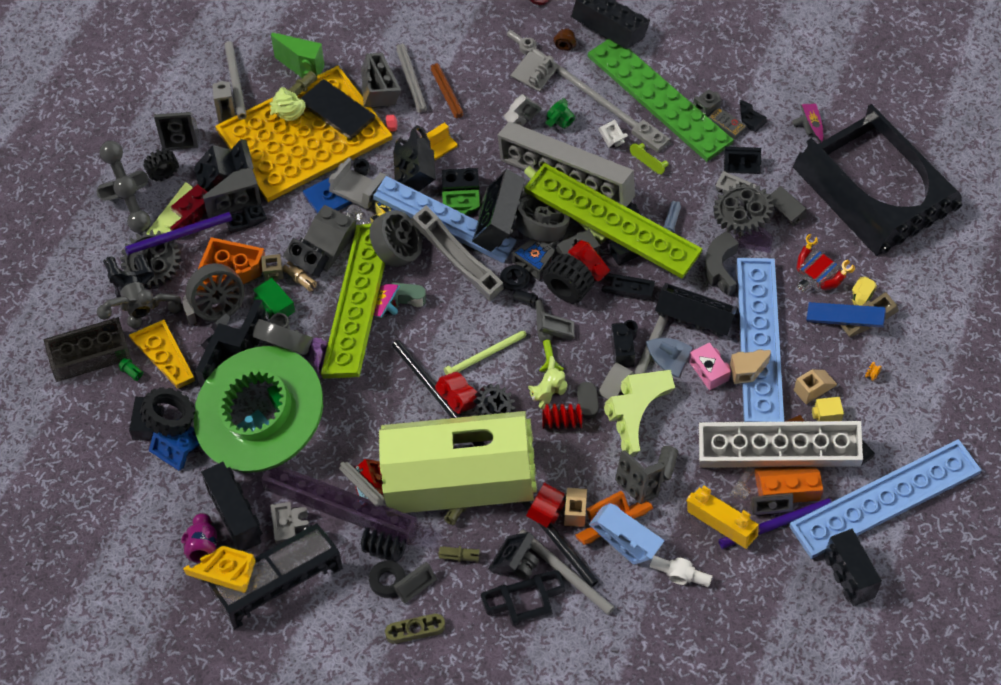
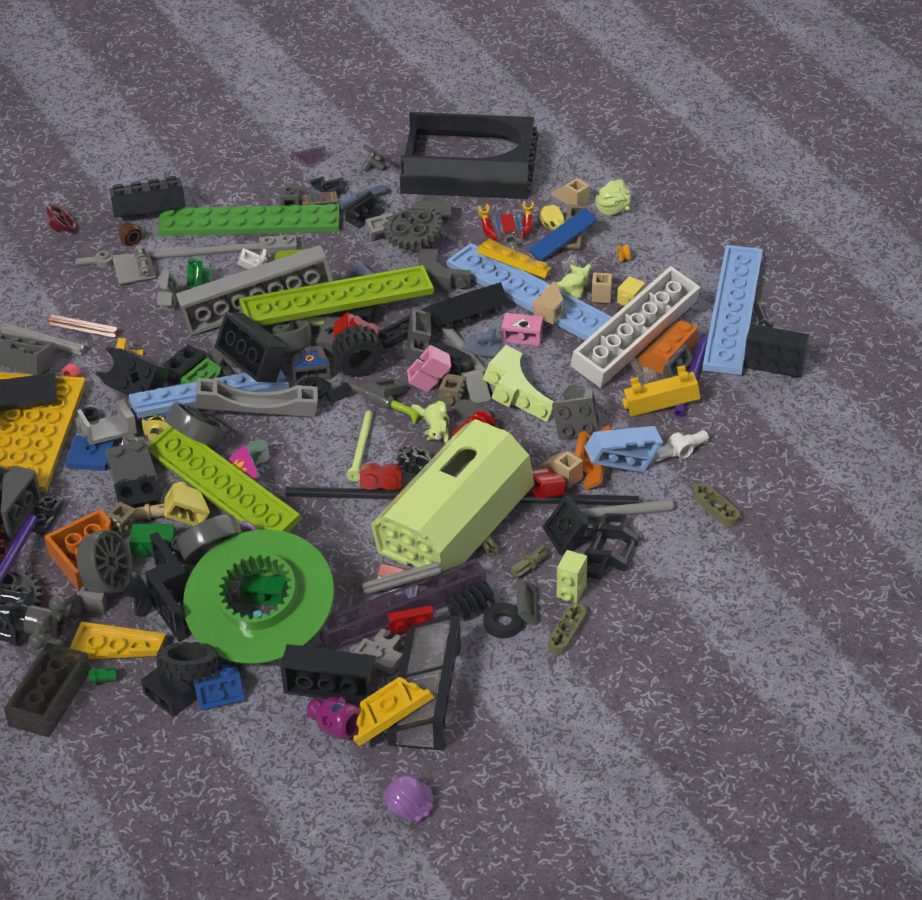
camera: 50 degrees left, 15 degrees down
(166, 641) = (409, 798): none -> medium lavender hair
(319, 293) = (185, 504): none -> light yellow torso
(331, 524) = (400, 621): none -> red plate
(458, 595) = (571, 576): none -> yellowish green brick
(594, 338) = (427, 374): none -> bright pink piece
(594, 368) = (451, 394): none -> dark tan brick
(630, 654) = (711, 497): none -> olive beam
(631, 303) = (418, 335): none -> dark grey slope
(767, 149) = (378, 191): none -> sand blue axle
(769, 78) = (308, 157): none -> clear purple slope
(785, 299) = (511, 257): none -> yellow wing
(795, 363) = (576, 281): none -> yellowish green animal
(821, 344) = (568, 261): none -> clear bar
(892, 535) = (761, 316): none -> black bar
(907, 285) = (574, 192): none -> tan slope
(929, 317) = (613, 198): none -> yellowish green hair

